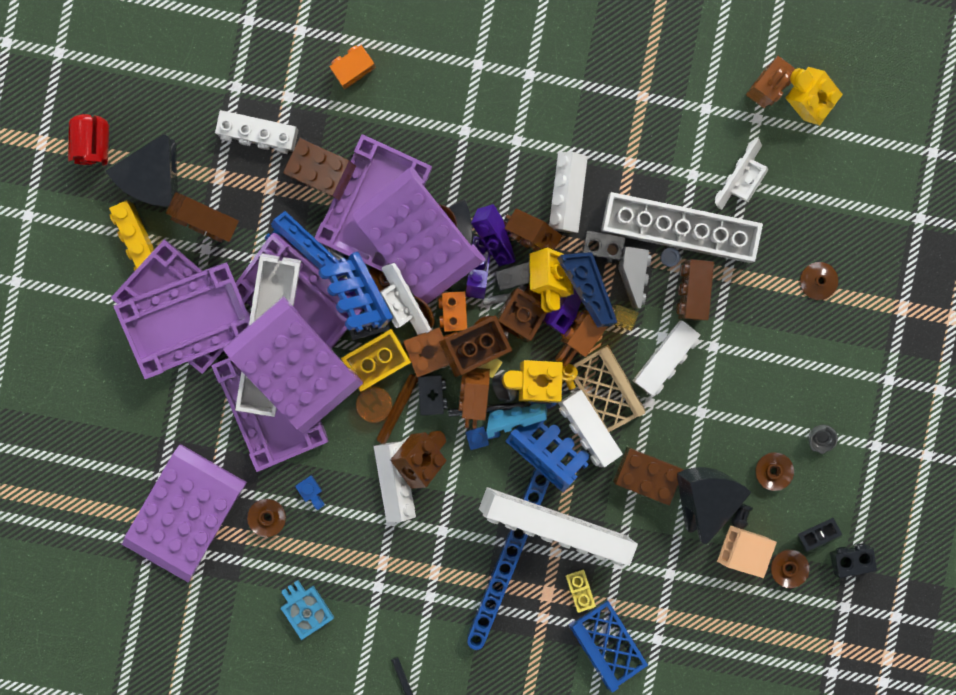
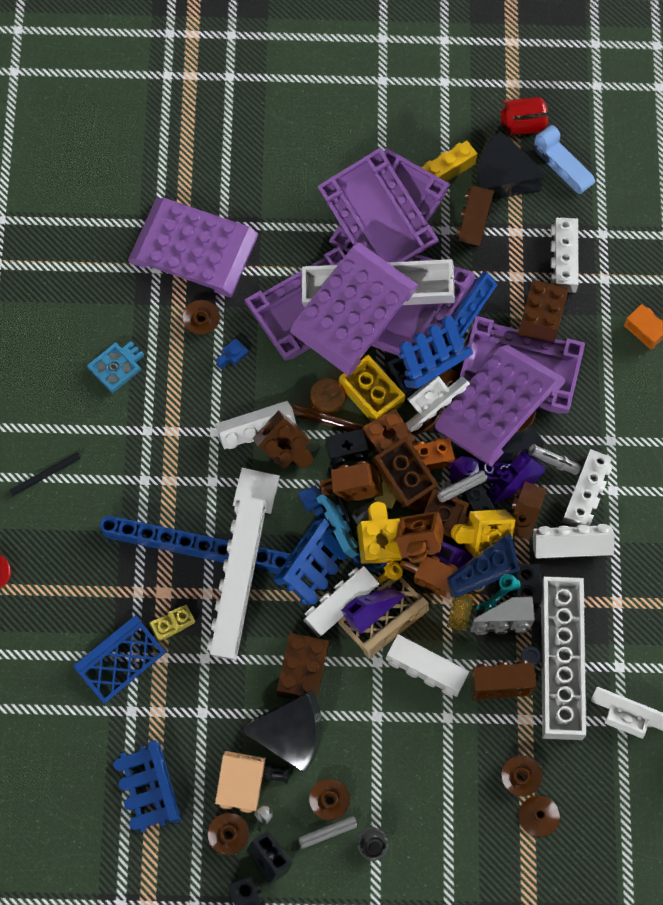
camera: 75 degrees right, 20 degrees down
(147, 110) = (561, 160): none -> light blue beam
(461, 490) = (258, 486): none -> white slope
(482, 193) = (561, 462): none -> light grey pin
(500, 291) = (461, 486): none -> light grey axle
(514, 166) = (587, 489): none -> white brick
(549, 344) = (420, 536): none -> dark orange brick
(602, 400) = (368, 608): none -> dark purple slope
(605, 267) = (507, 583): none -> teal brick
(733, 623) = (155, 795): none -> blue fence
(776, 532) = (263, 814): none -> light grey hinge
(792, 286) = (525, 766): none -> reddish brown dish
(802, 477) = (327, 832): none -> light grey axle

